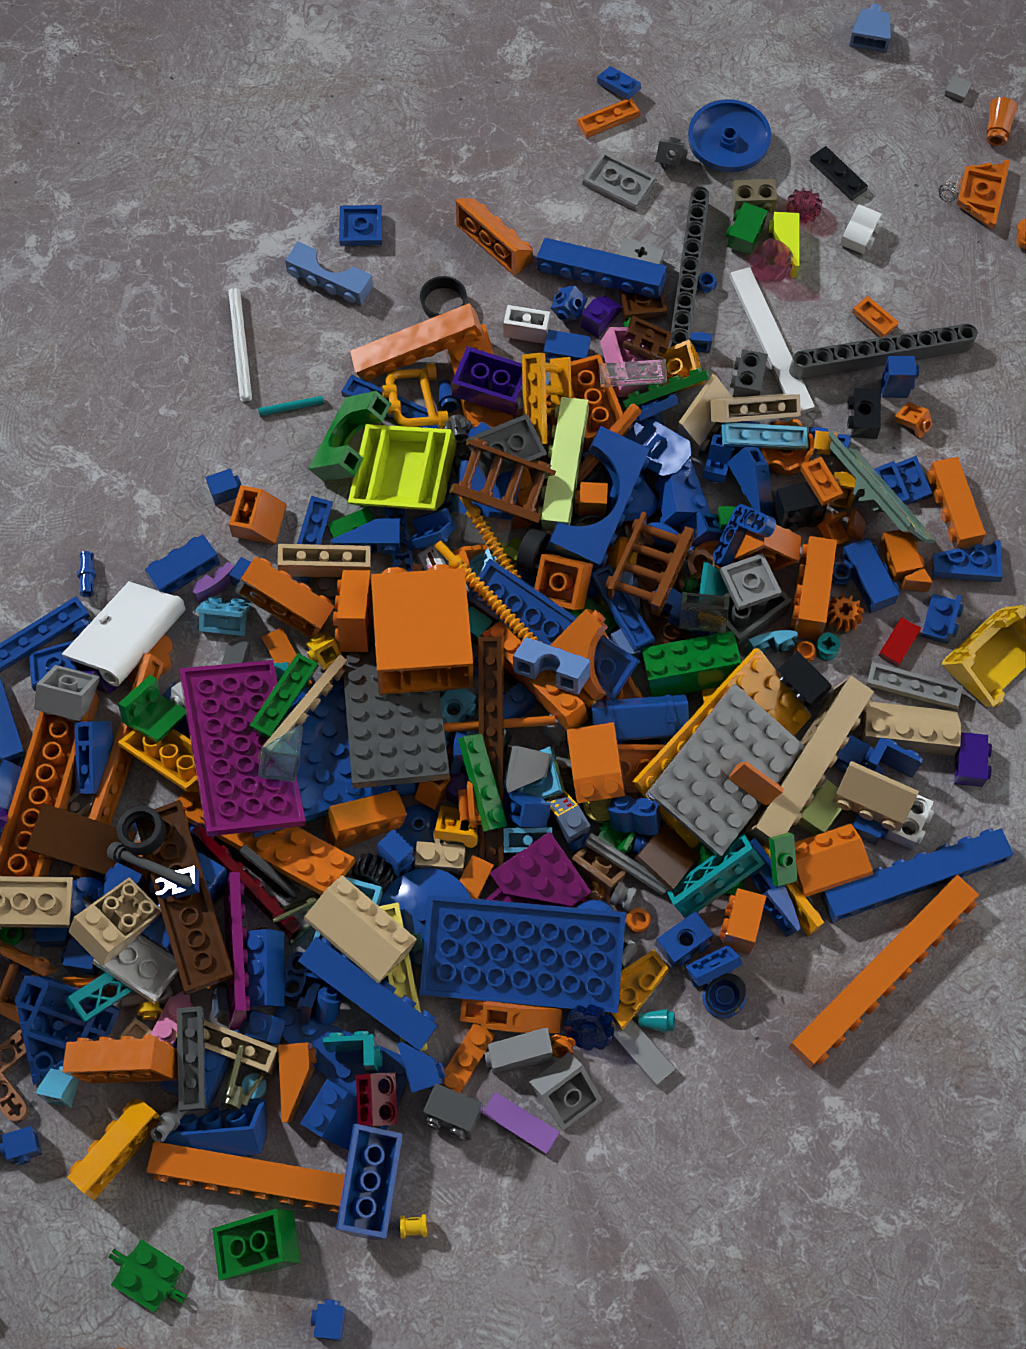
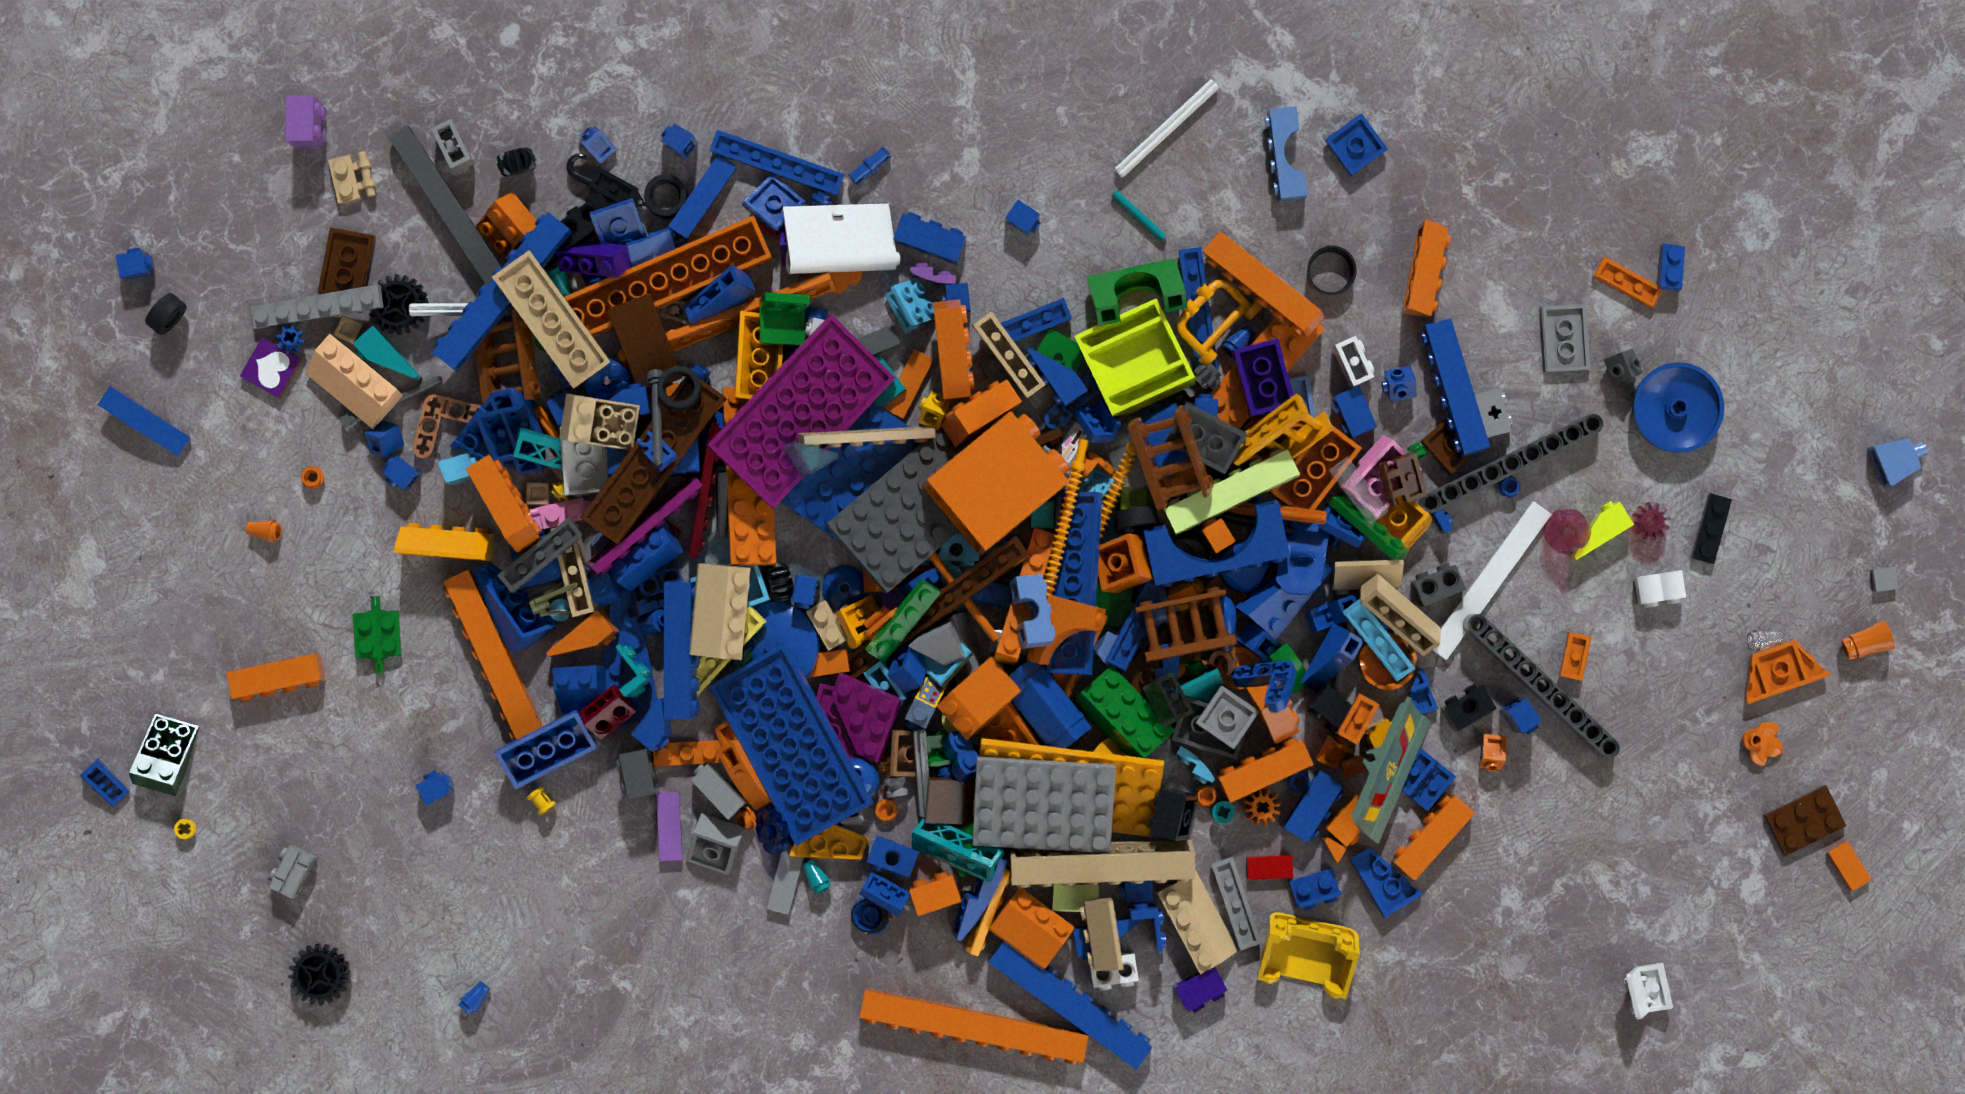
camera: 50 degrees right, 20 degrees up
(65, 693) = (751, 239): light grey slope -> none
(168, 1122) = (489, 569): light grey pin -> none
(256, 1244) = (450, 696): green slope -> none
(257, 515) = (1015, 267): orange slope -> none
(283, 696) = (866, 413): green piece -> none
(303, 905) = (721, 553): olive plant -> none
(363, 819) = (816, 545): orange wedge -> none
(599, 315) = (1411, 416): dark purple slope -> none
(746, 228) = (1587, 487): green brick -> none
(753, 193) = (1633, 466): dark tan brick -> none
(755, 783) = (1044, 835): orange slope -> none
(783, 859) = (1002, 895): green plate -> none
(822, 442) = (1410, 689): light orange plate -> none

